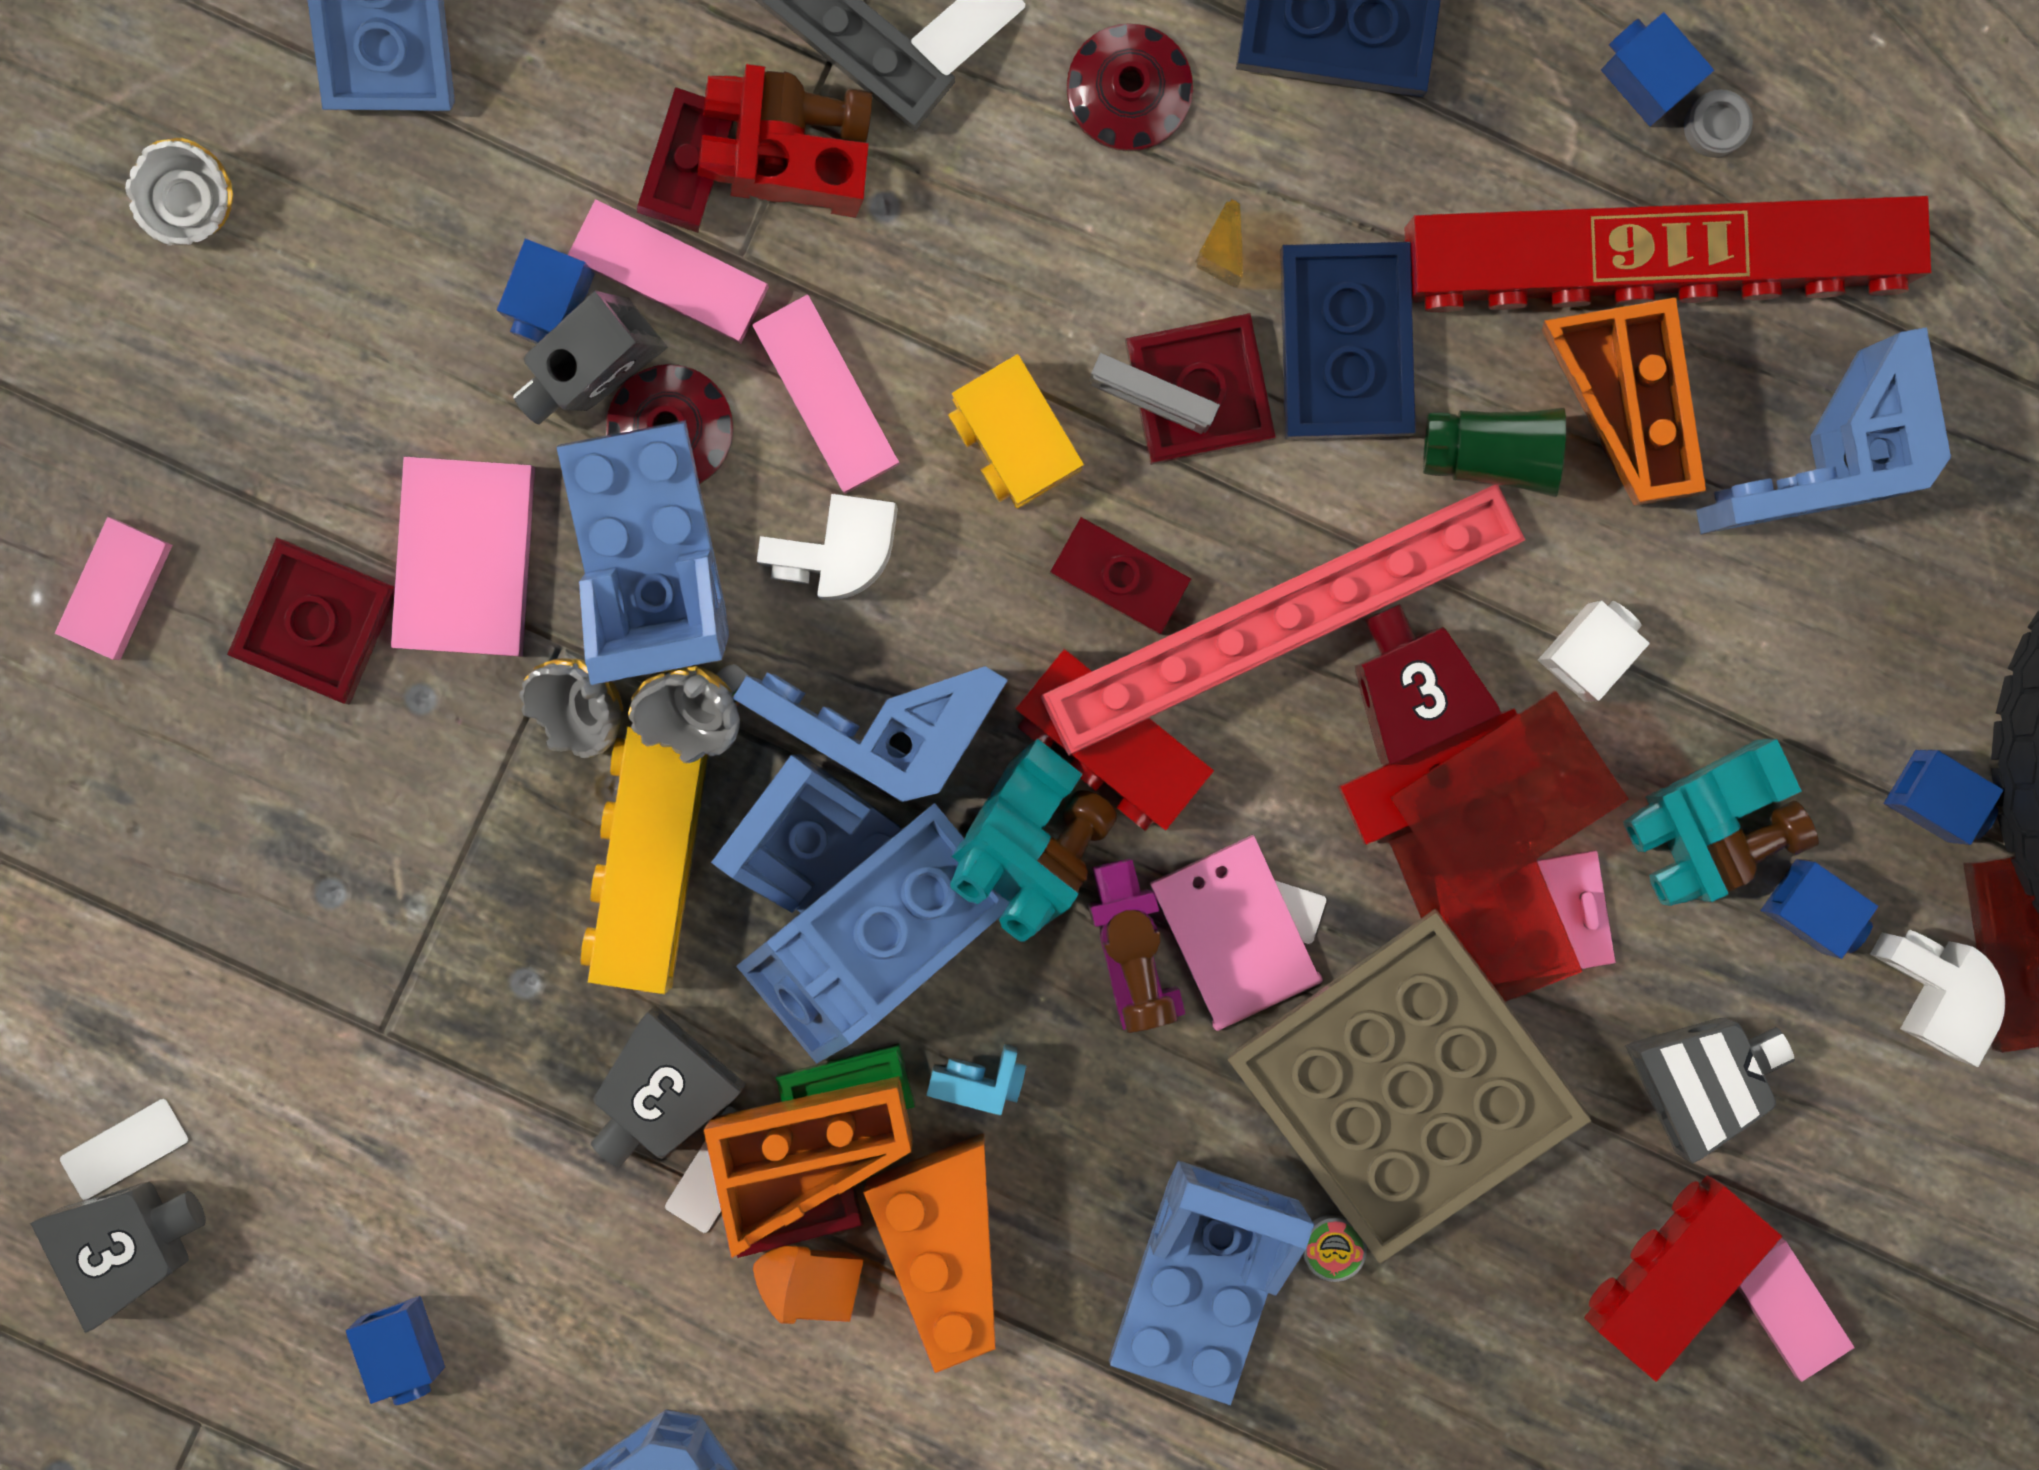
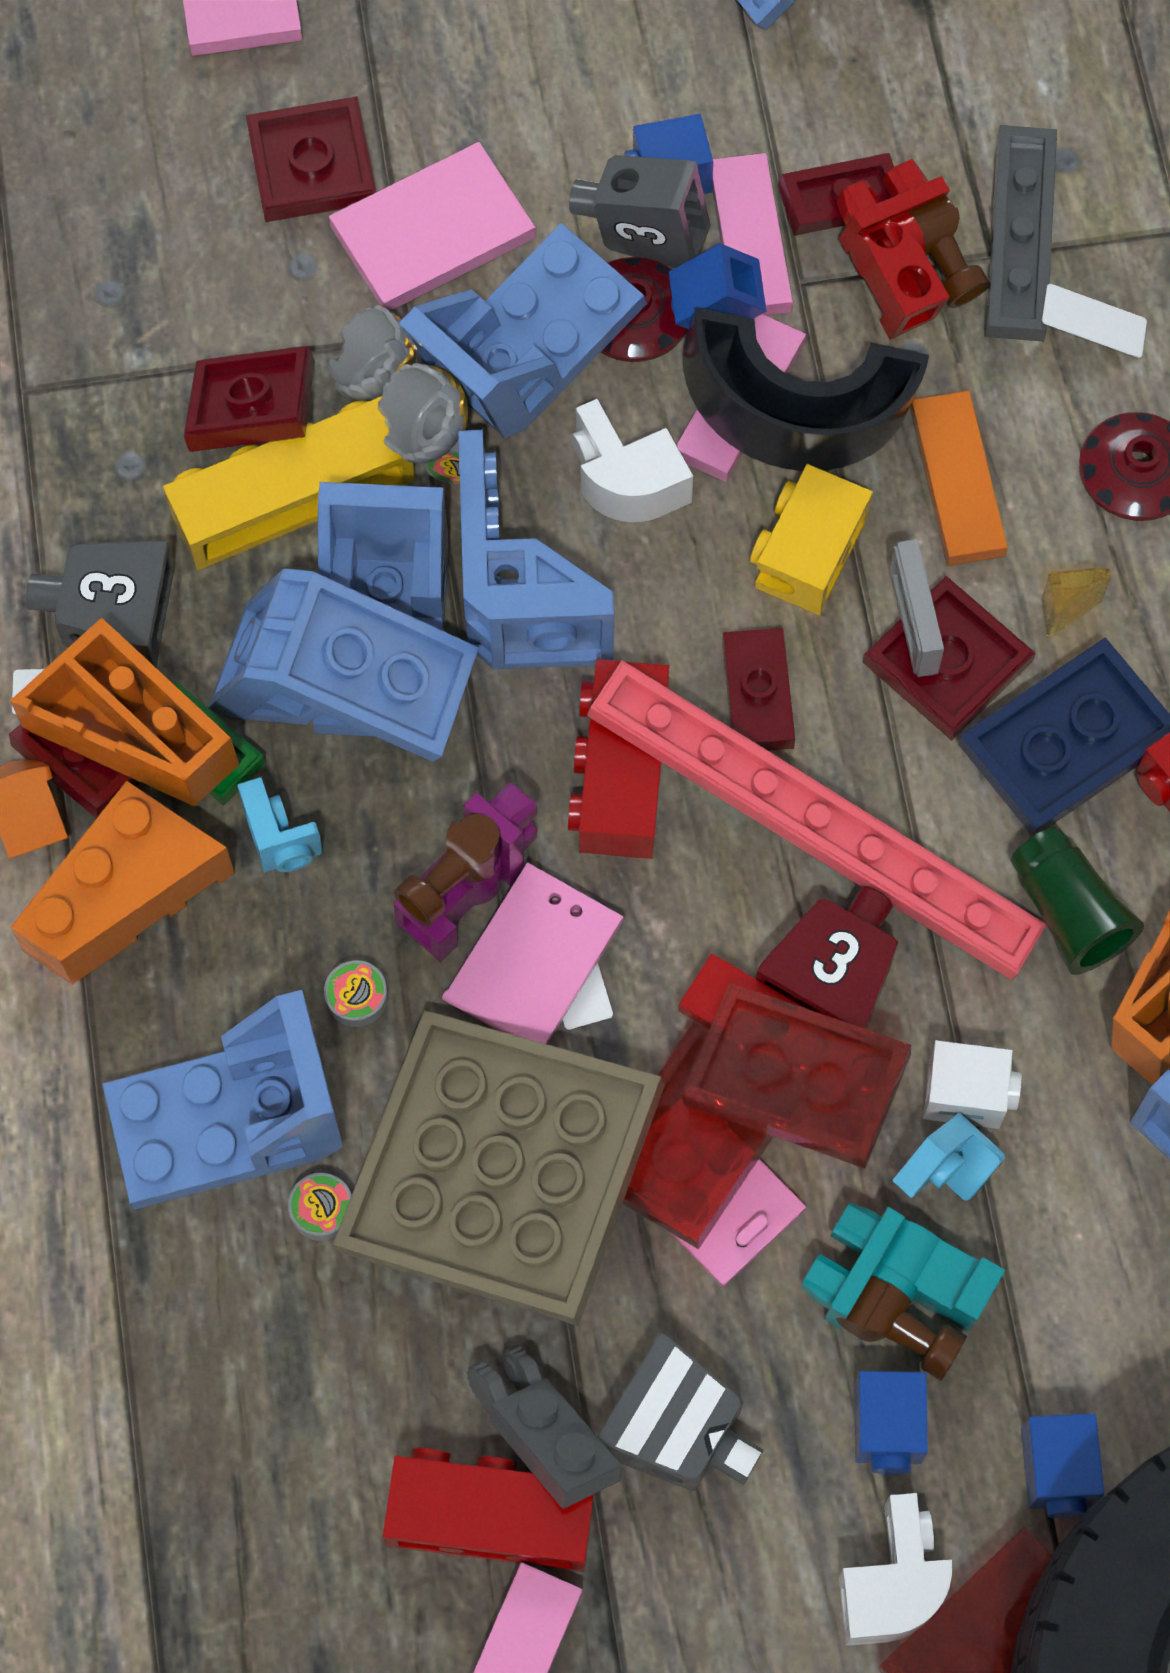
camera: 55 degrees right, 20 degrees down
(544, 844) = (249, 399): none -> dark red tile
(719, 350) = (717, 281): none -> blue brick
(897, 384) = (789, 418): none -> black brick
(1016, 856) = (482, 724): teal hips -> none
(1036, 257) = (958, 478): none -> orange tile
(1167, 1102) = (356, 993): none -> tile
(1645, 715) = (951, 1156): none -> medium azure bracket
(1655, 1196) = (544, 1429): none -> dark grey hinge

